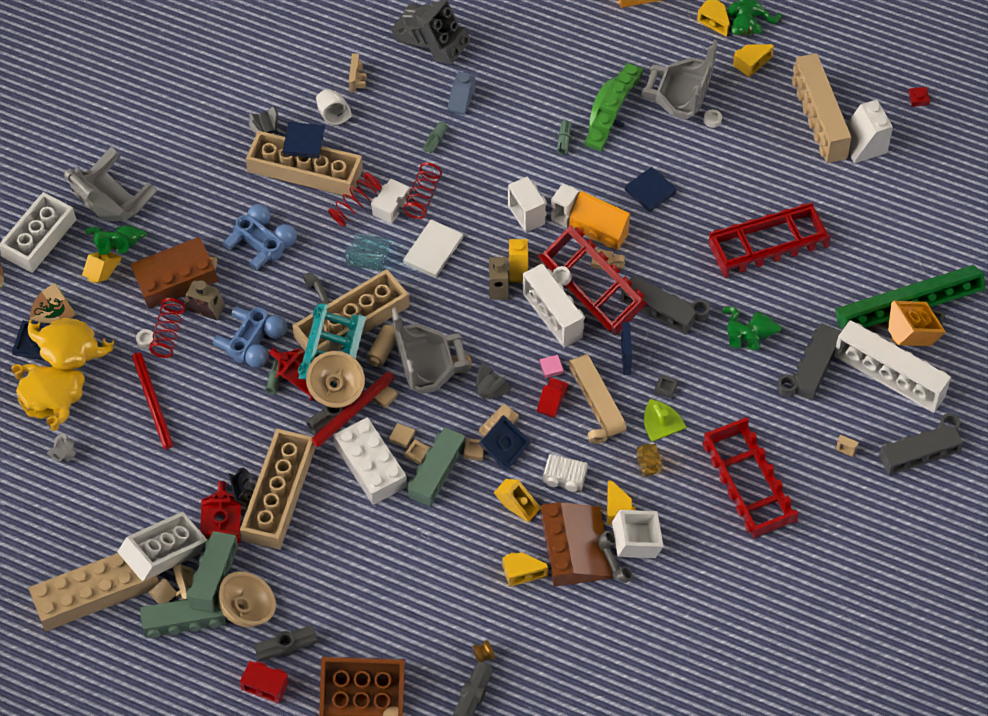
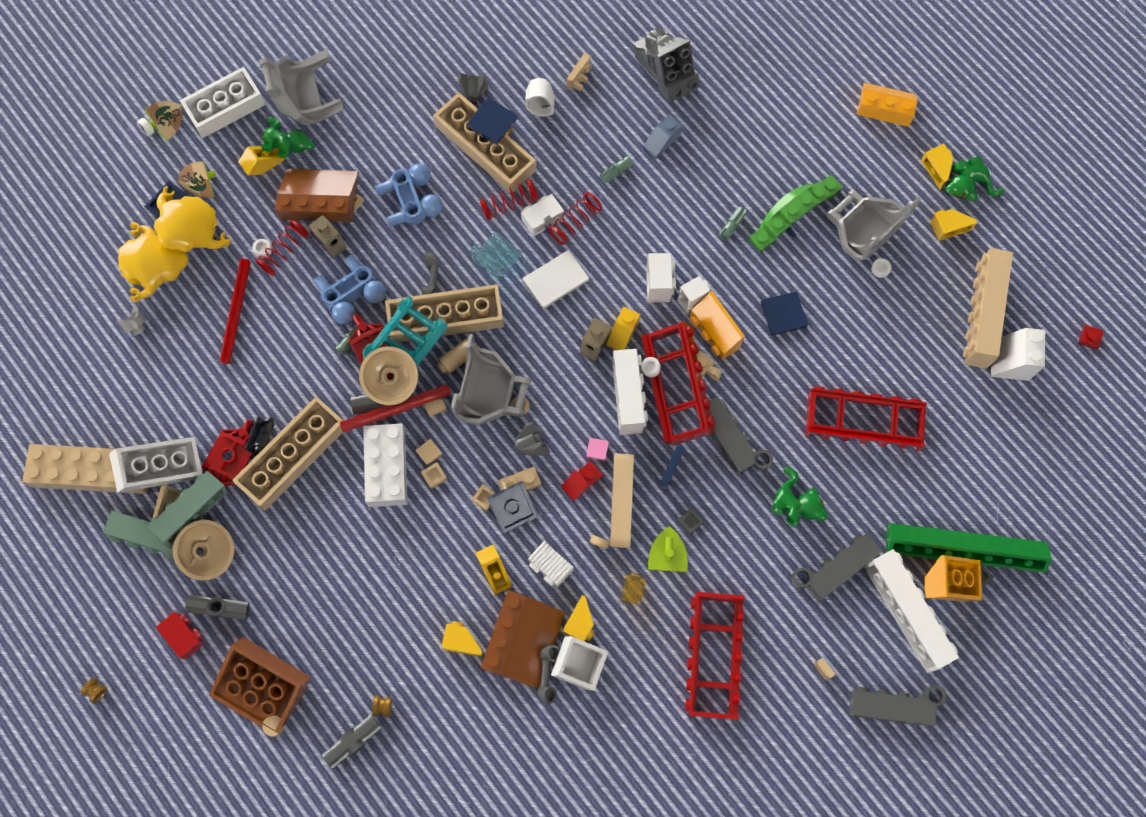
camera: 25 degrees right, 15 degrees up
(162, 592) = (142, 502): tan tile -> none
(436, 467) = (441, 499): sand green brick -> none

